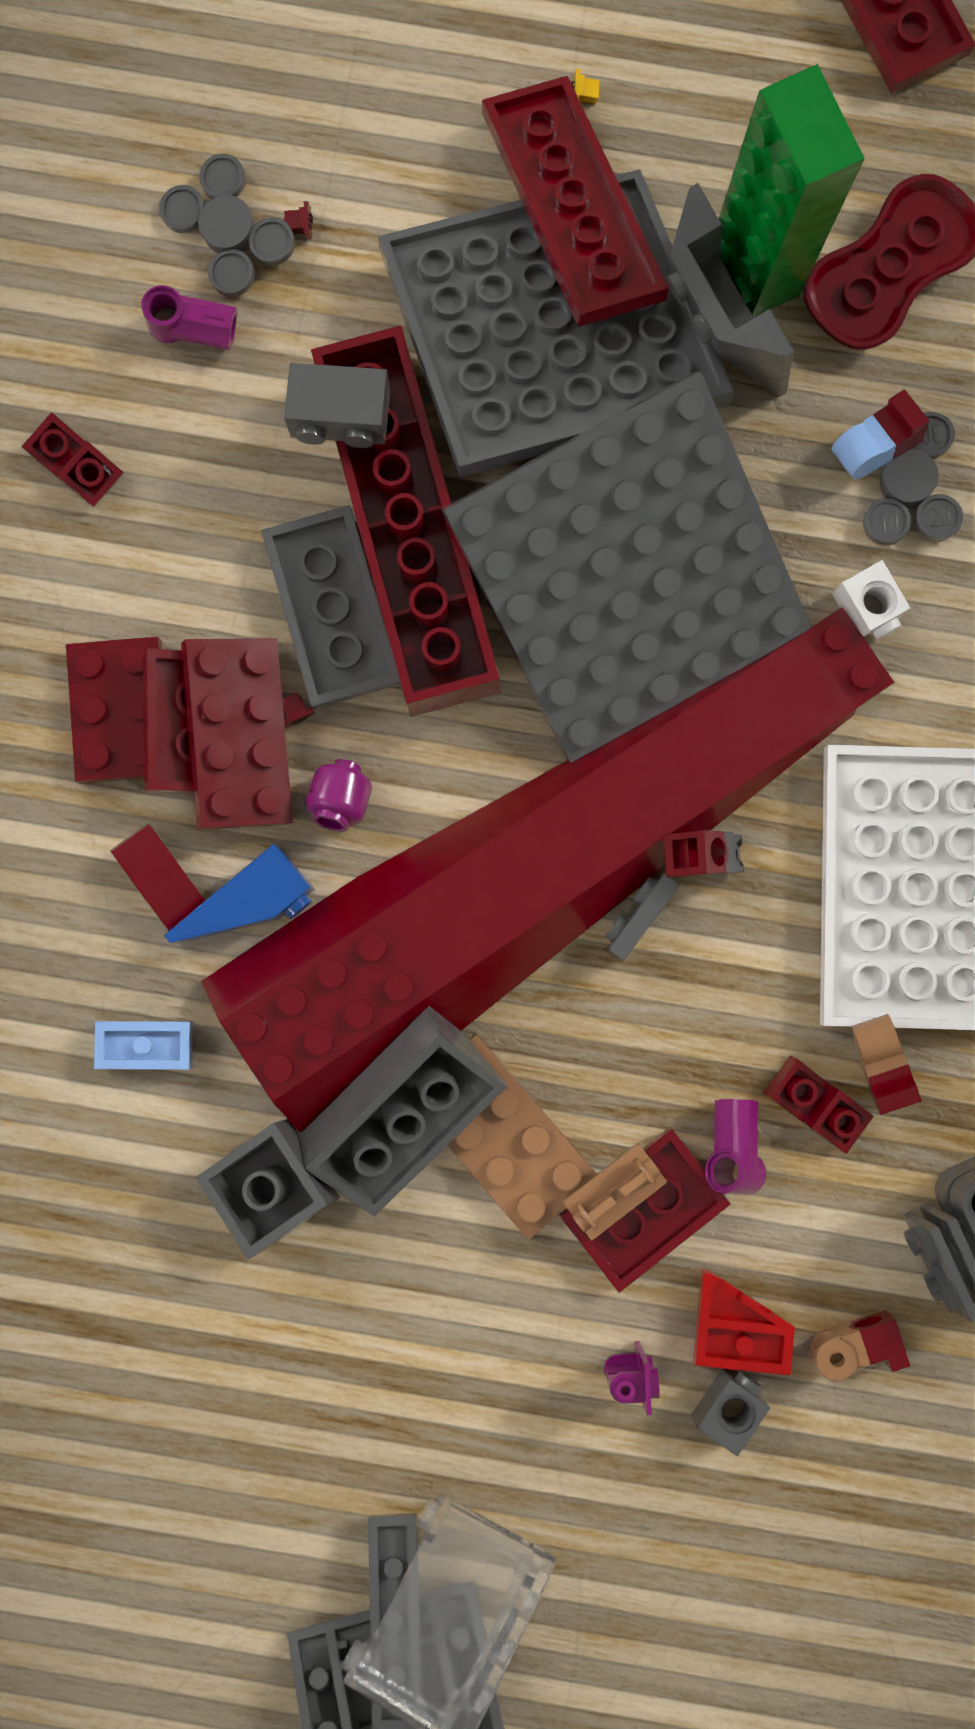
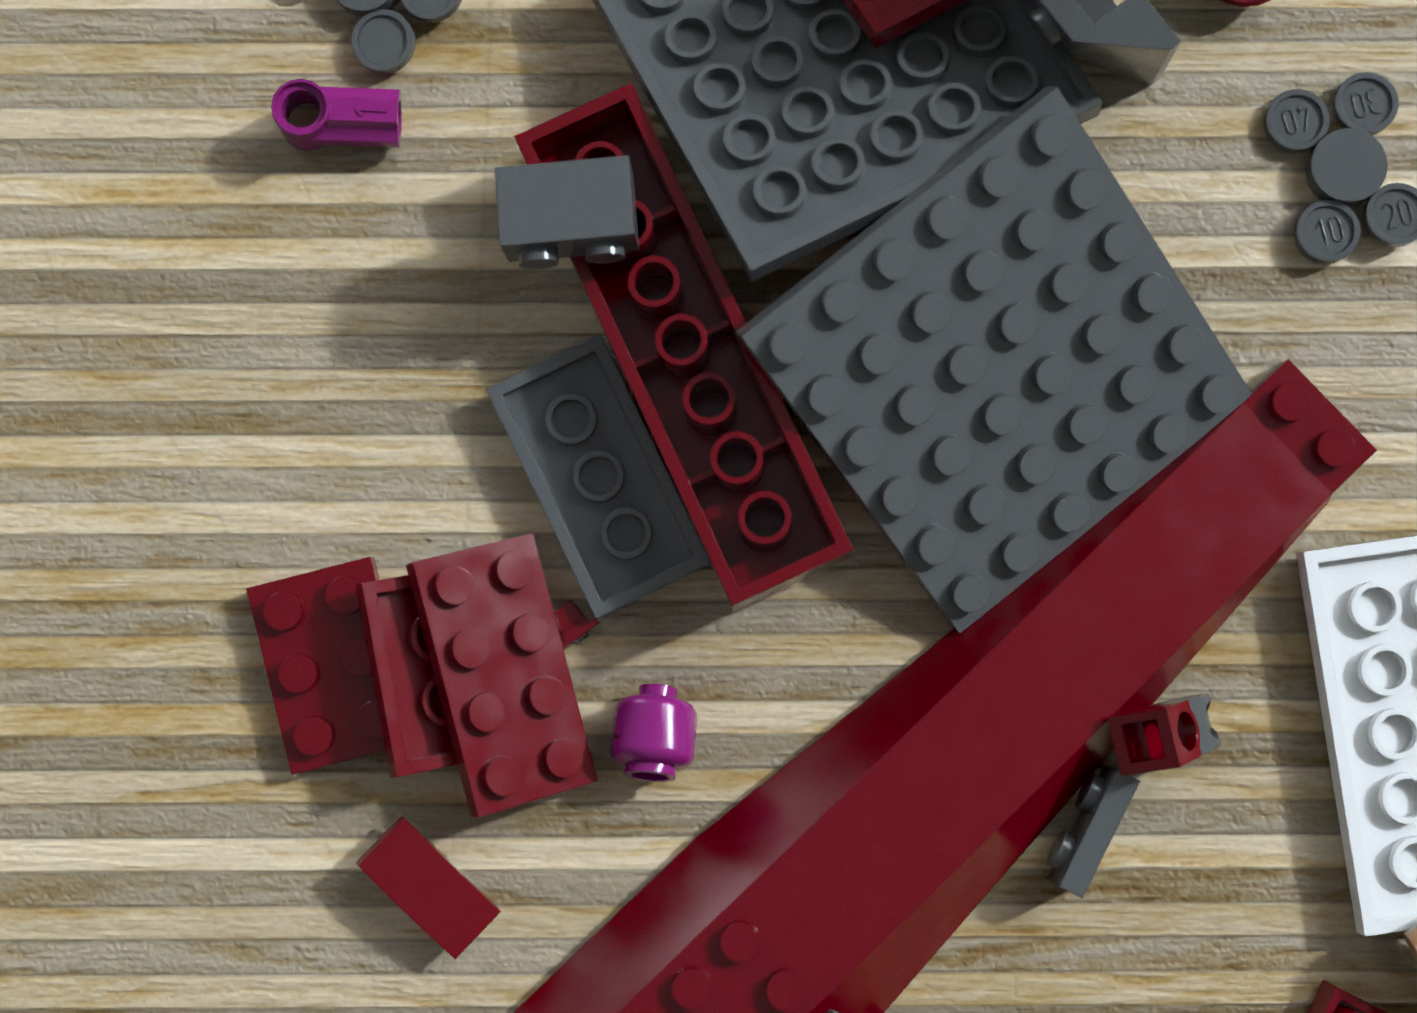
camera: 10 degrees left, 0 degrees up
(72, 460) = (212, 334): dark red slope -> none
(254, 896) = (564, 894): blue slope -> none
(878, 583) = (1334, 319): white brick -> none
(881, 436) = (1304, 120): leg -> none

